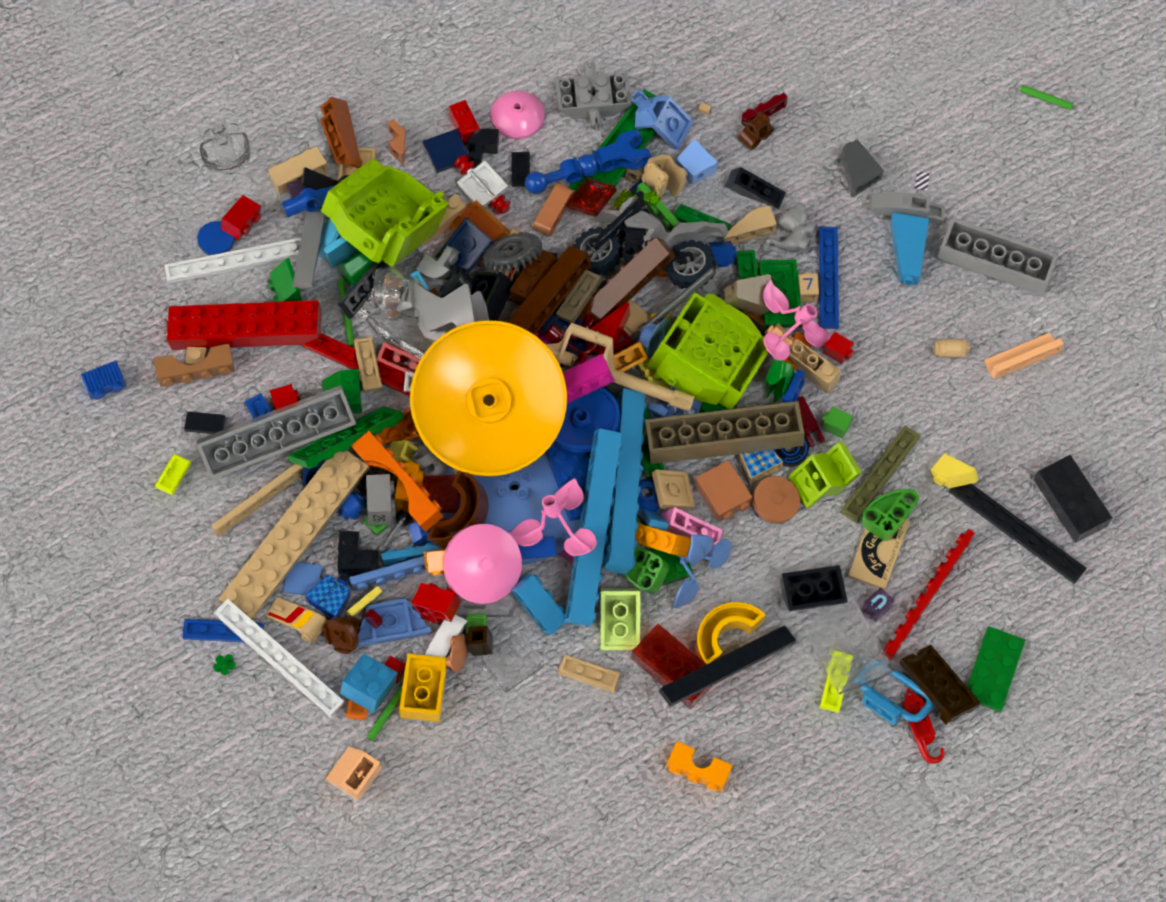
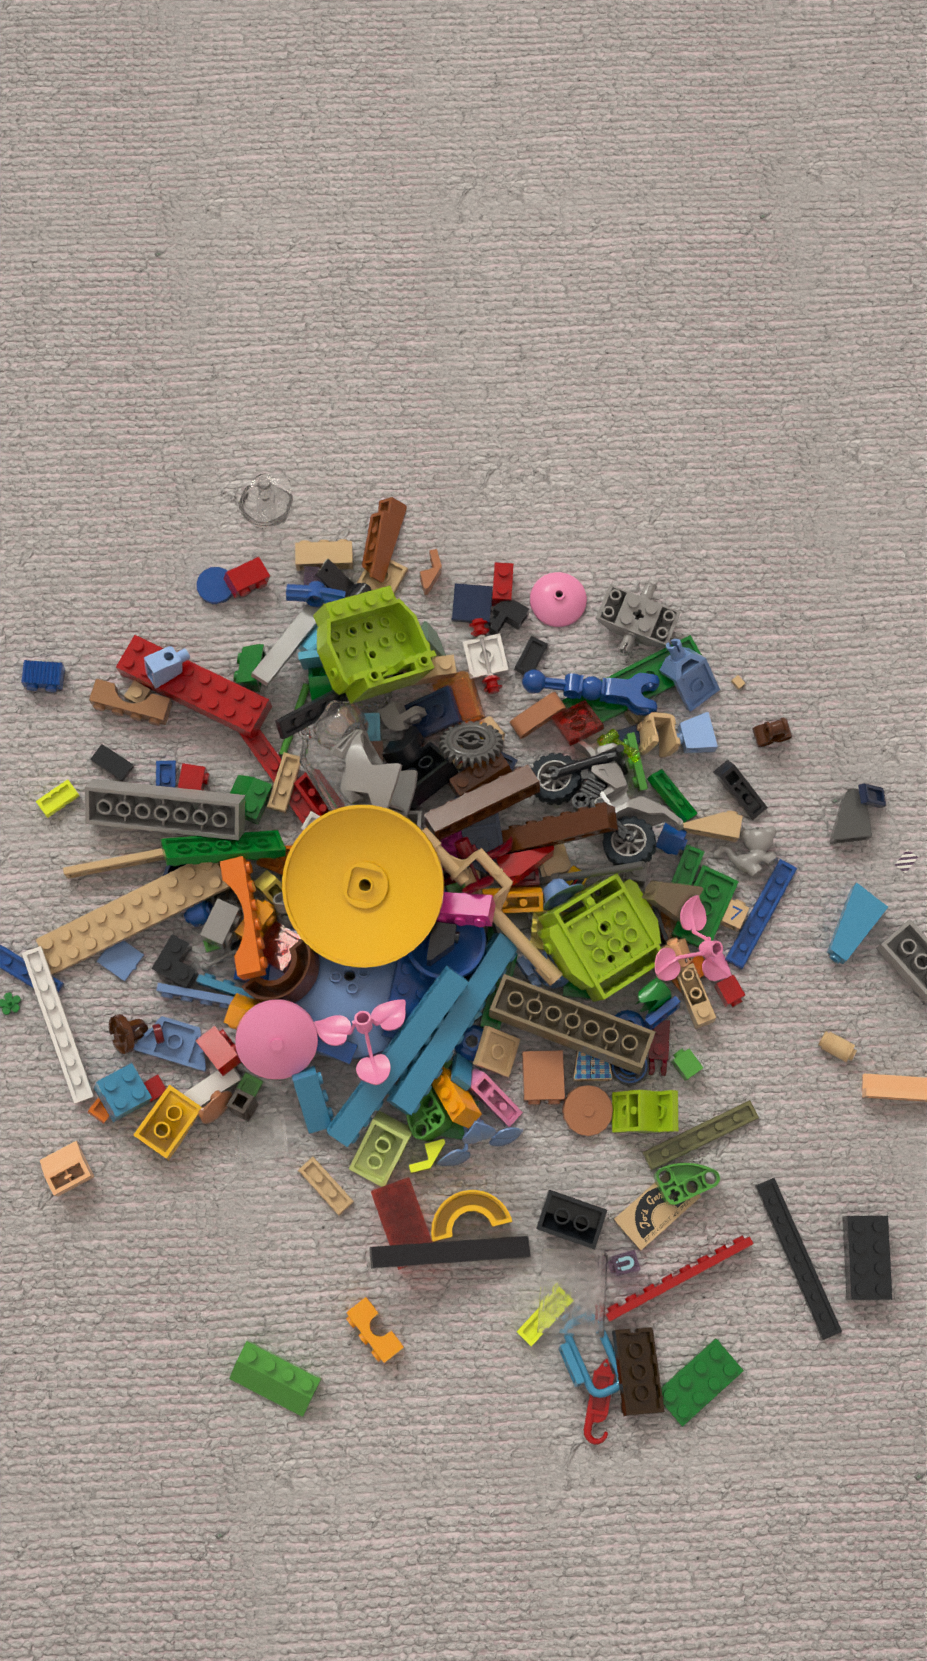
camera: 25 degrees right, 10 degrees up
(212, 313) = (165, 665): none -> light blue torso
(232, 260) = (218, 614): white tile -> none
(303, 620) = (94, 995): tan door -> none
(330, 595) = (135, 989): torso -> none
(363, 602) = (159, 1011): light yellow tile -> none
(385, 715) = (123, 1128): bright green bar -> none
(579, 296) = (511, 818): dark tan plate -> none
(579, 415) = (441, 941): none -> black slope
(636, 851) = (275, 1378): none -> bright green slope
(664, 598) = (433, 1150): none -> neon yellow slope
(770, 107) = (792, 713): dark red hinge -> none
(865, 140) = (872, 795): none -> dark blue tile
(907, 204) = (875, 882): light grey slope -> none
(953, 472) = (766, 1172): light yellow slope -> none

